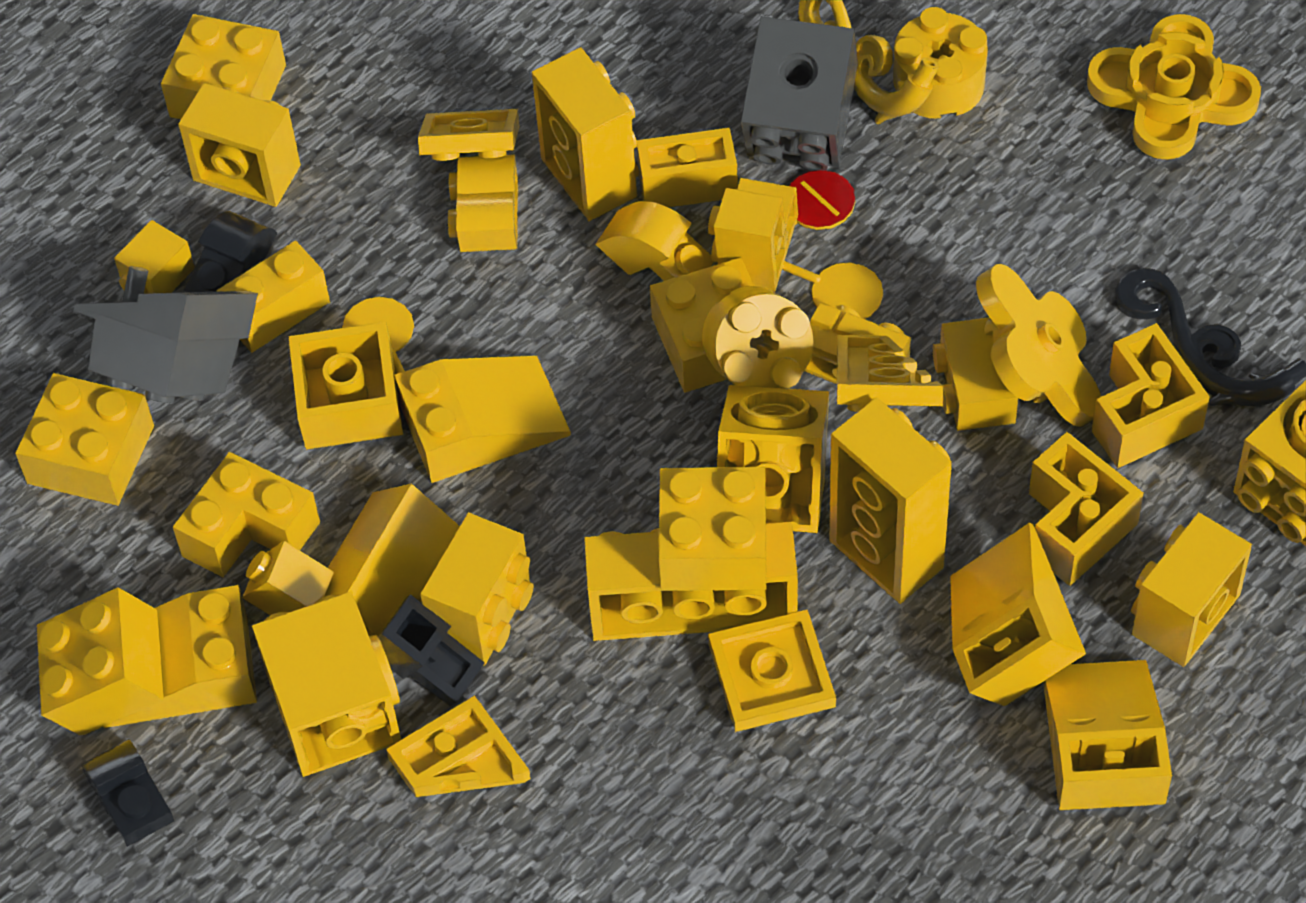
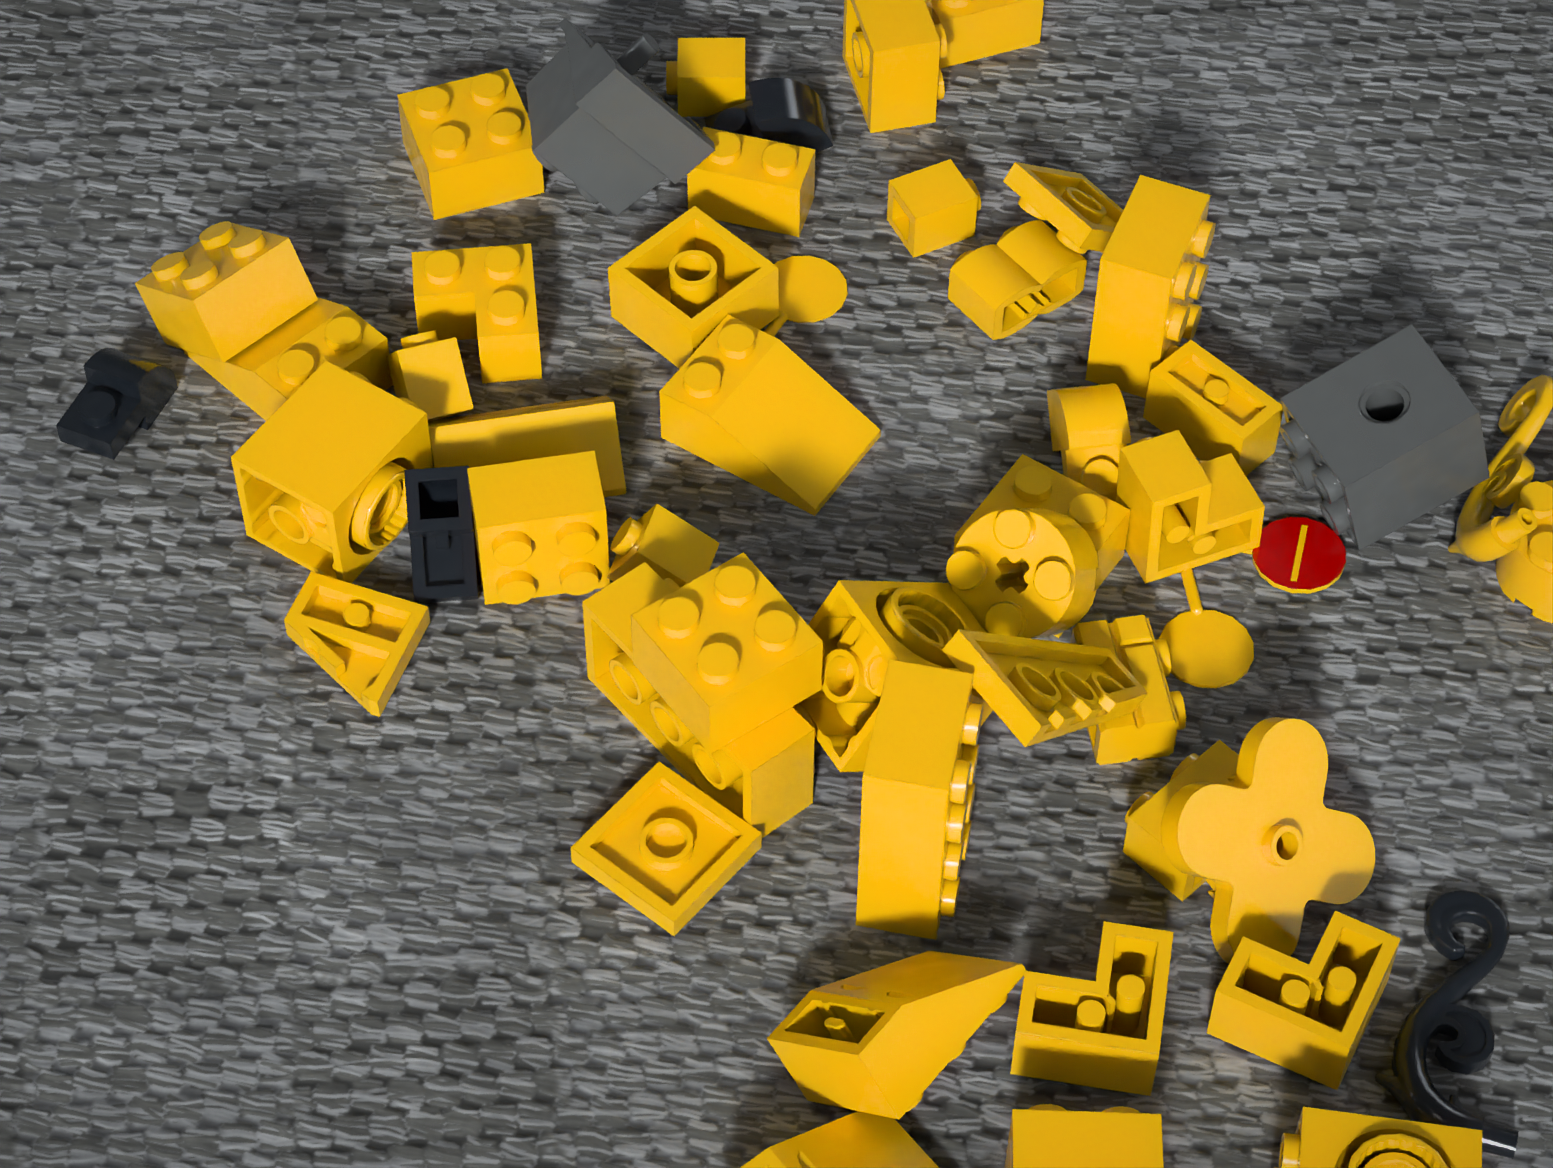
camera: 50 degrees right, 5 degrees down
(386, 210) = (932, 207): none -> yellow brick
(556, 535) = (665, 544): none -> yellow brick

